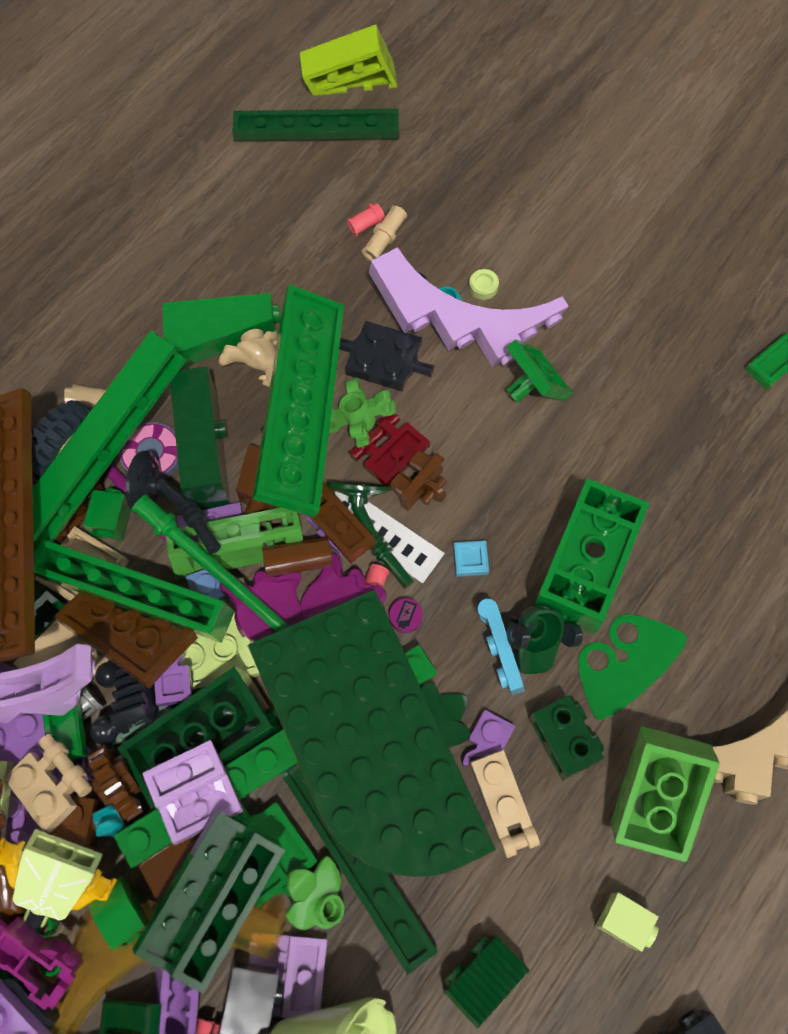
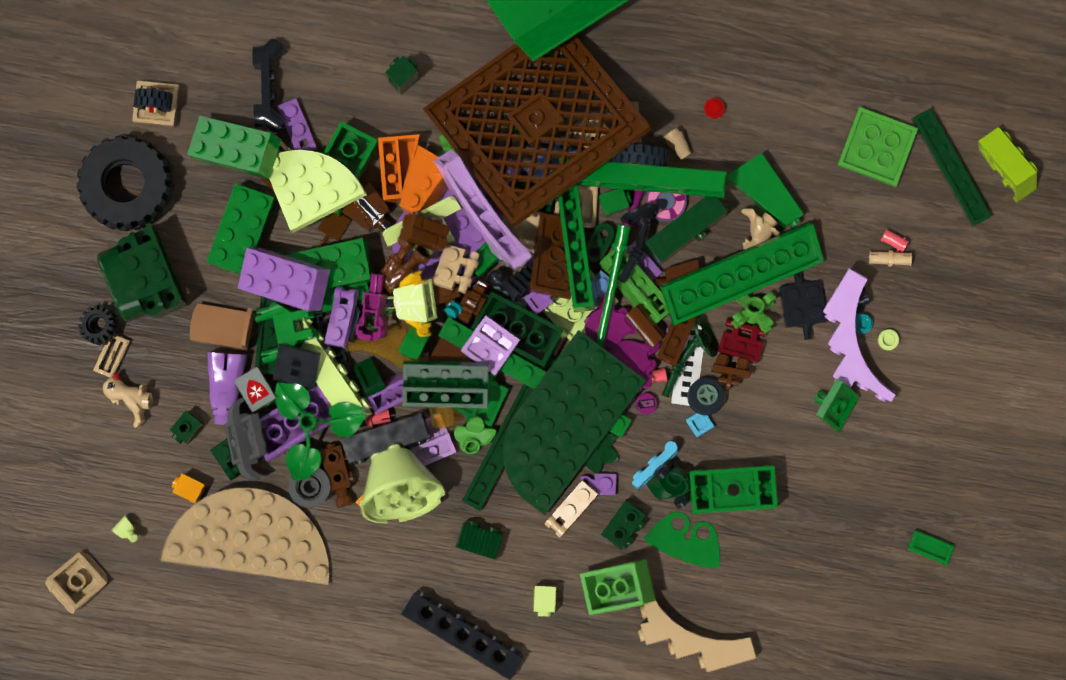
camera: 60 degrees right, 15 degrees up
(74, 337) = (714, 108): none -> red plate
(153, 562) = (599, 243): none -> dark green plate
(242, 186) = (877, 147): none -> bright green plate
(430, 521) = (707, 389): none -> black wheel

